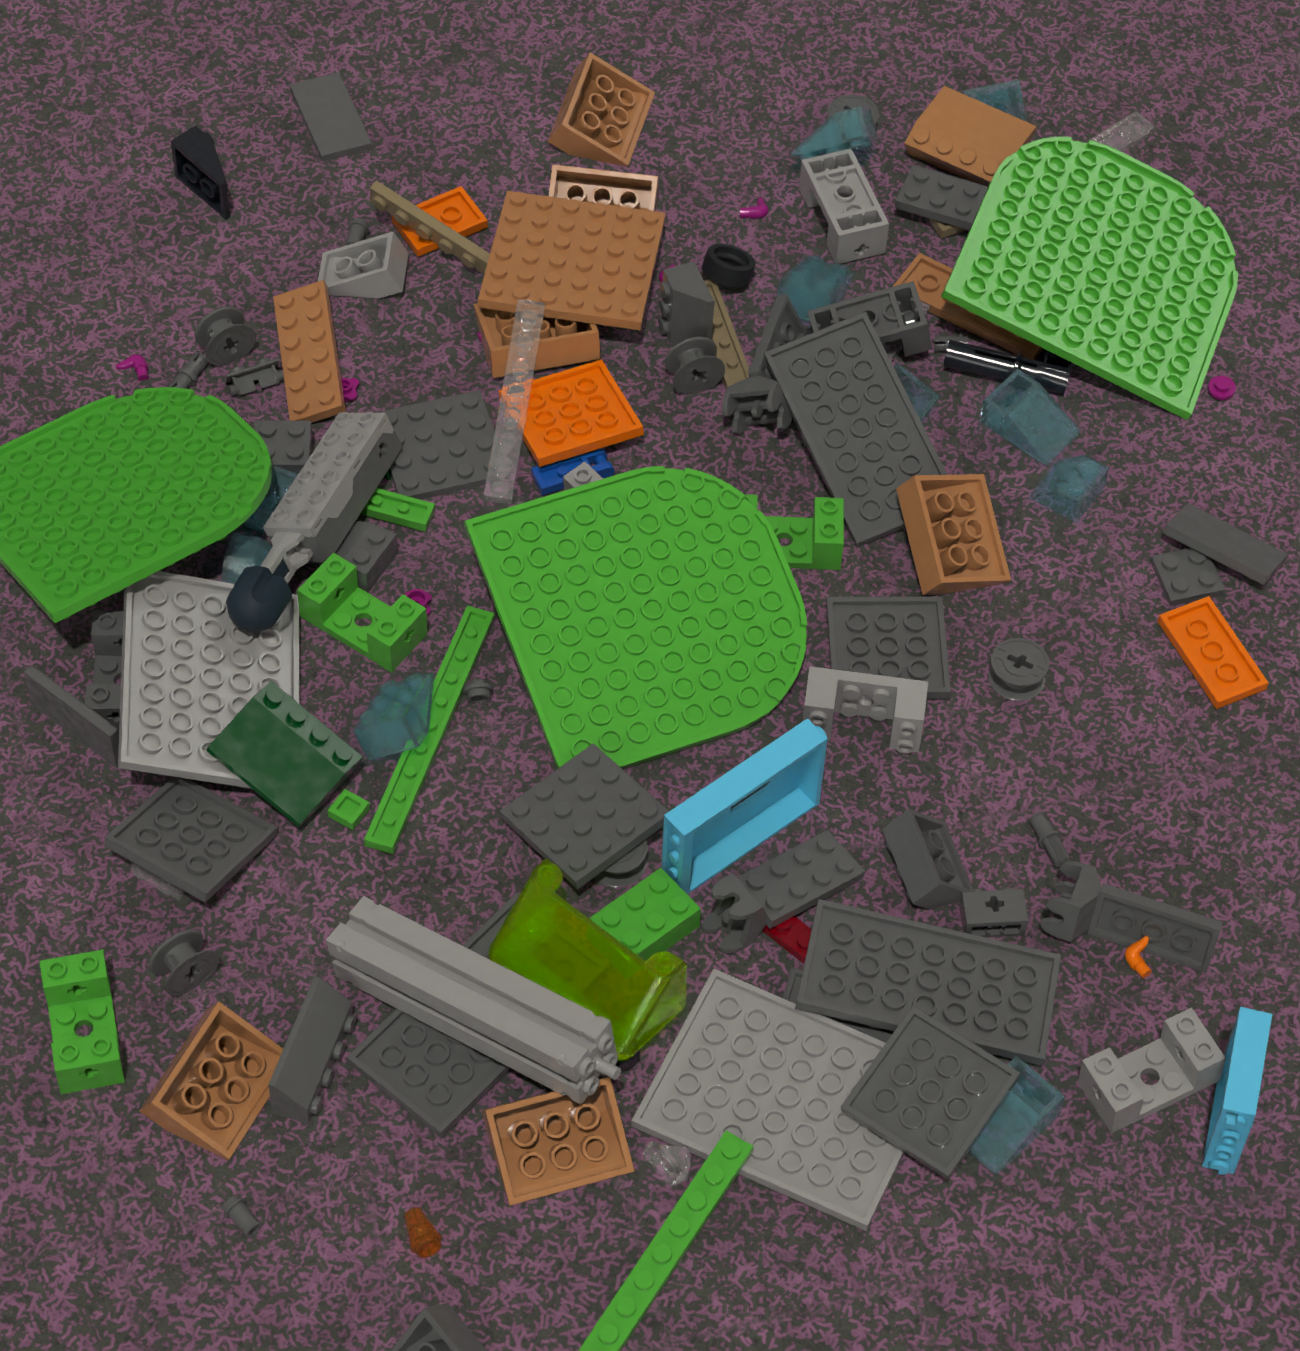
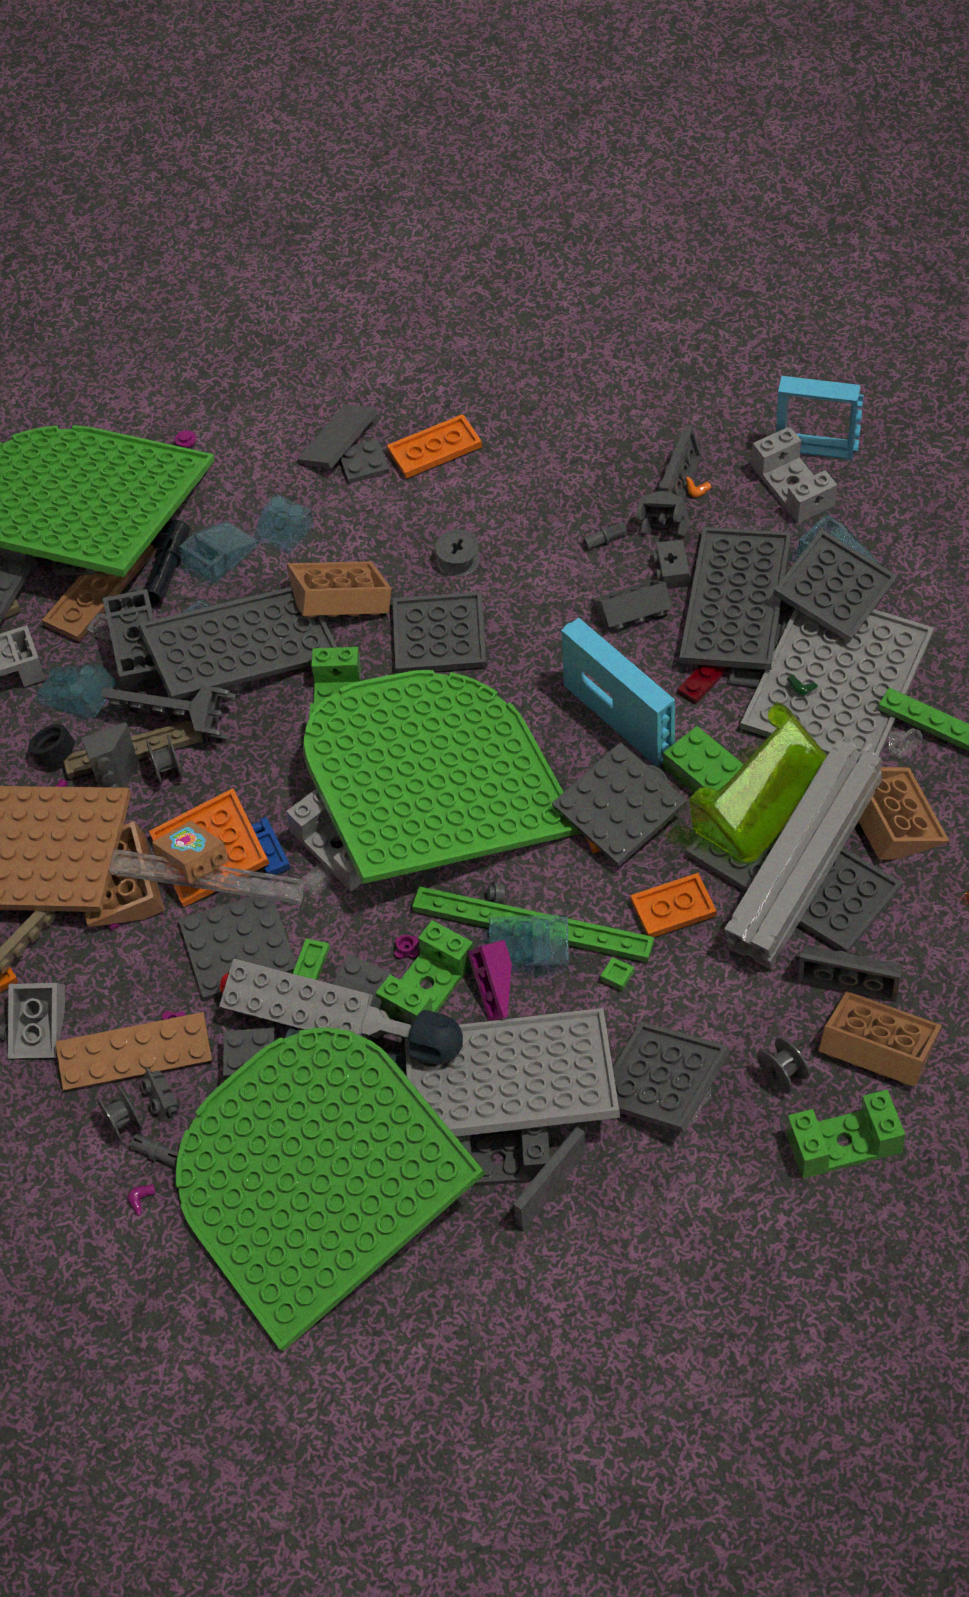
camera: 85 degrees left, 0 degrees up
(285, 754) = (579, 1011): dark green slope -> none
(357, 672) = (493, 975): none -> magenta slope
(440, 875) = (673, 905): none -> orange plate
(543, 377) = (192, 850): none -> medium nougat panel
(764, 1037) = (798, 687): none -> dark green animal
(779, 890) = (691, 696): dark grey hinge -> none
(886, 698) = (505, 660): light grey plate -> none

